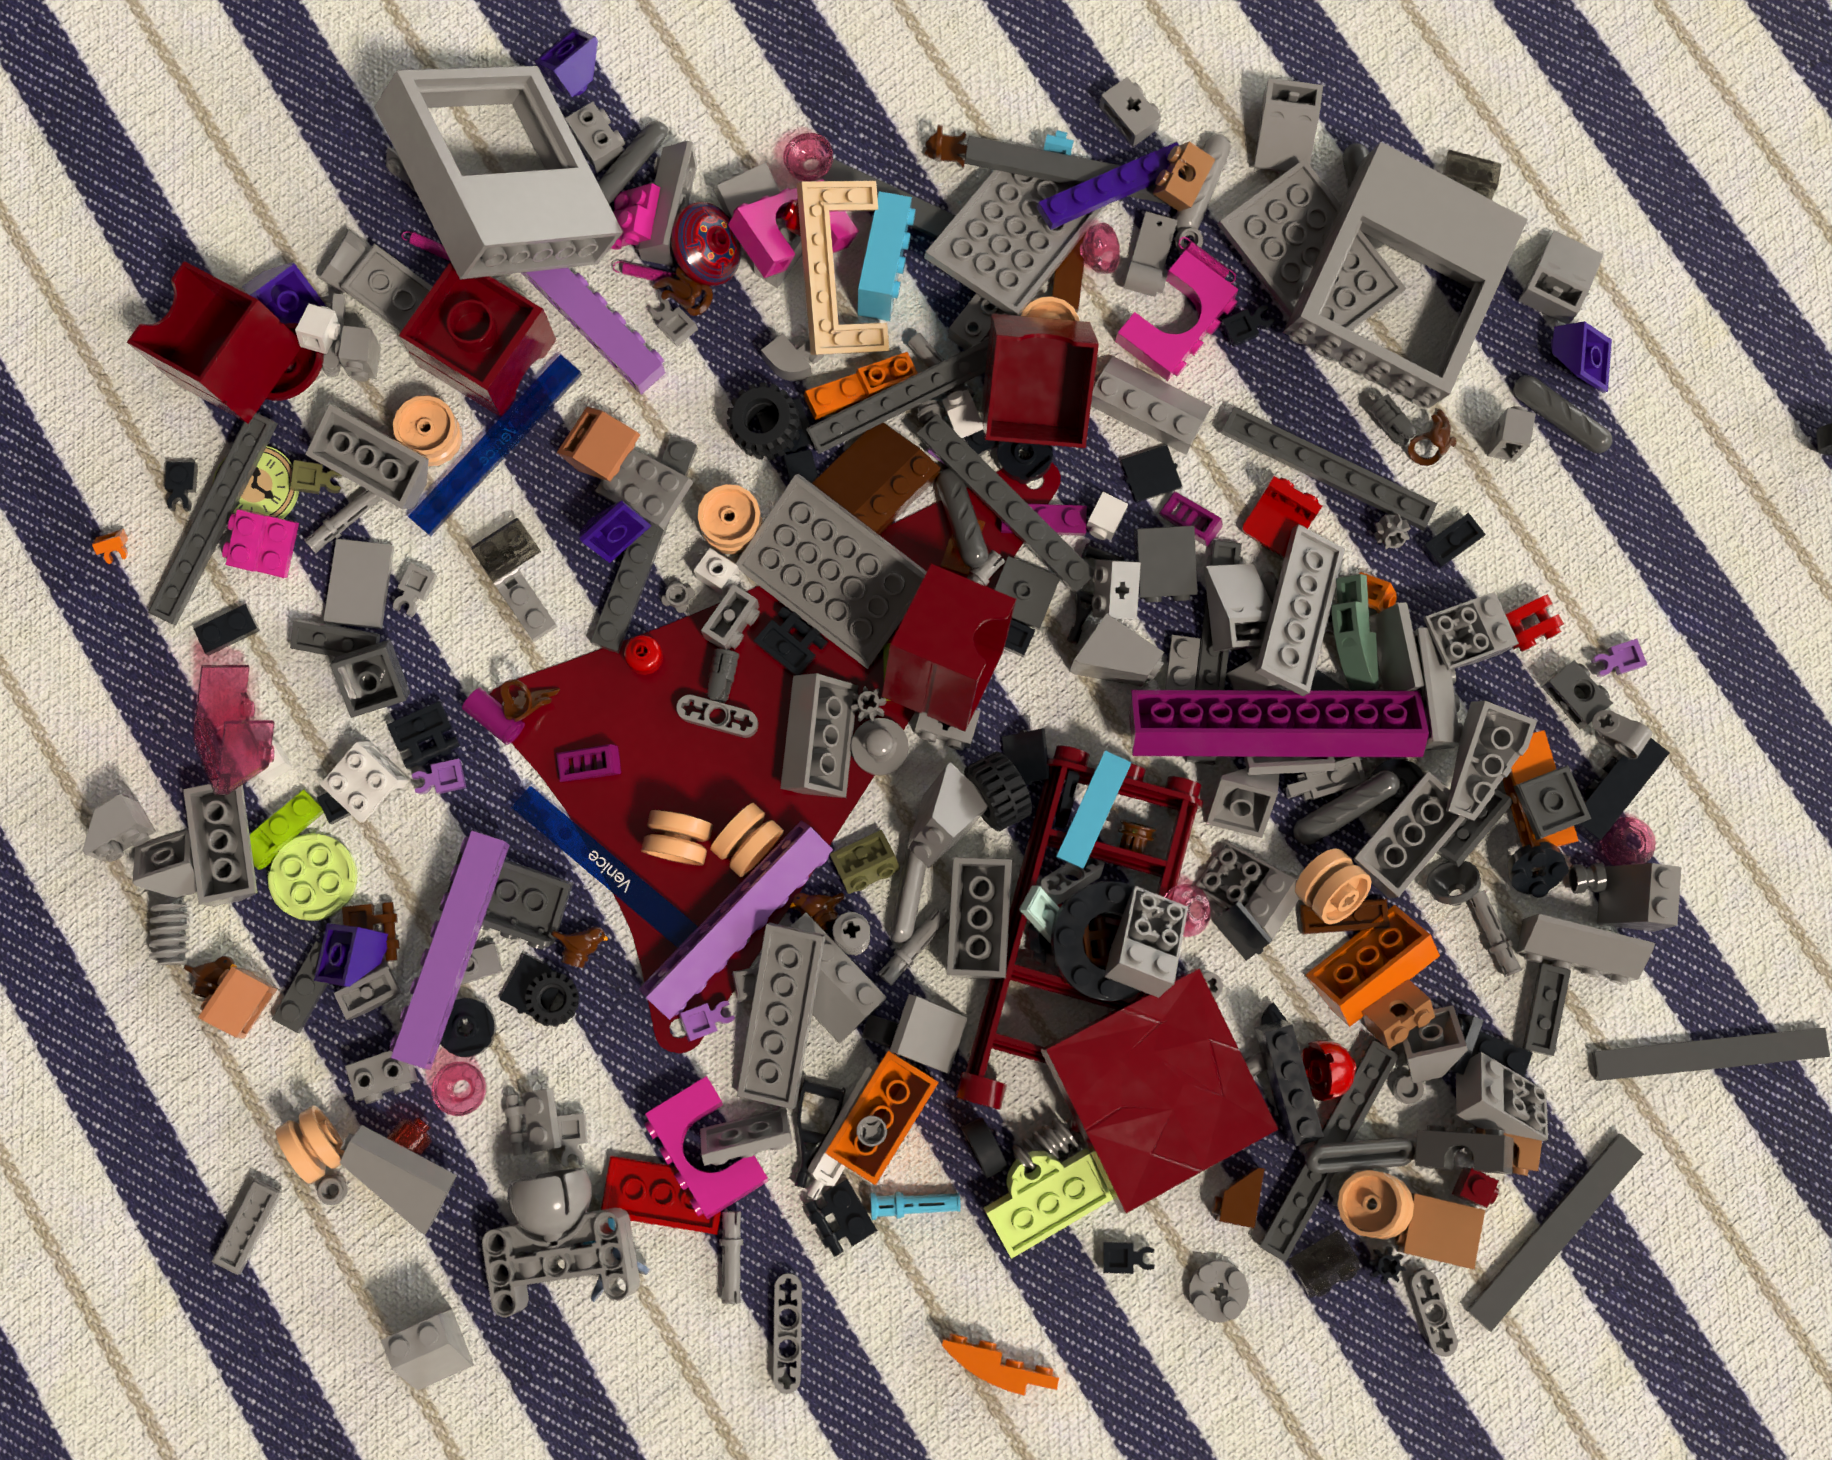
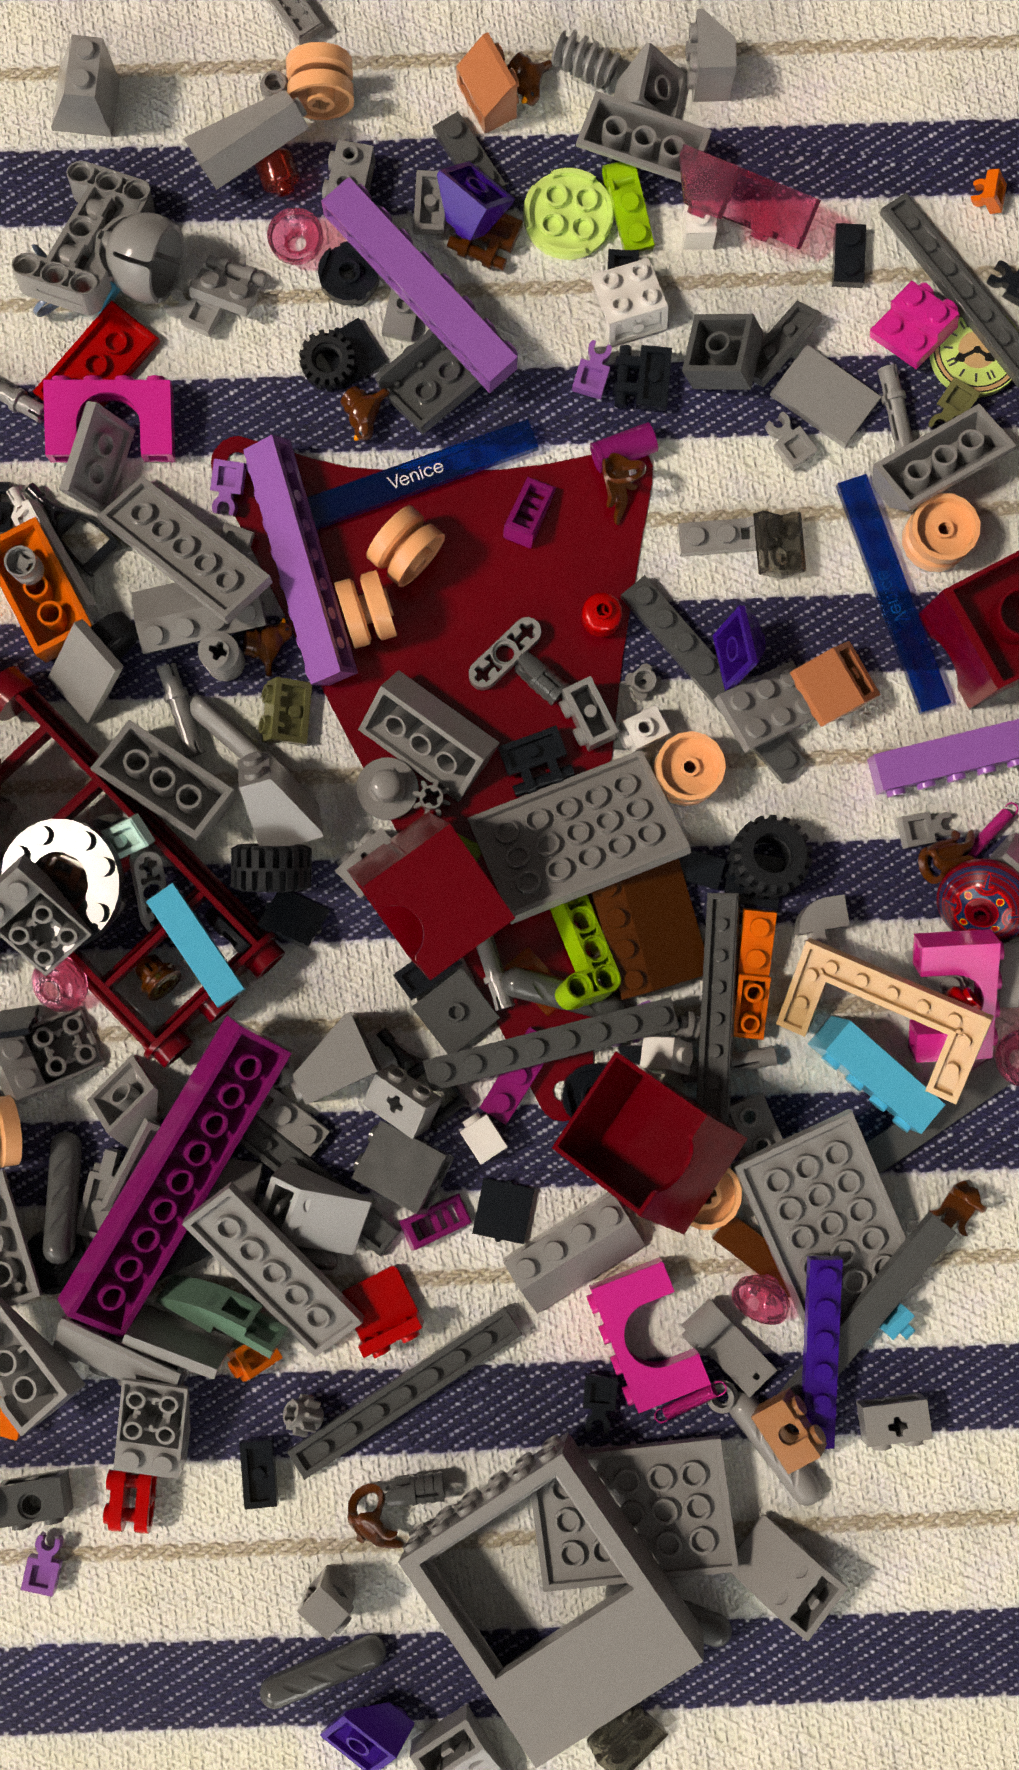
camera: 120 degrees right, 5 degrees up
(932, 507) = (586, 969): none -> lime beam

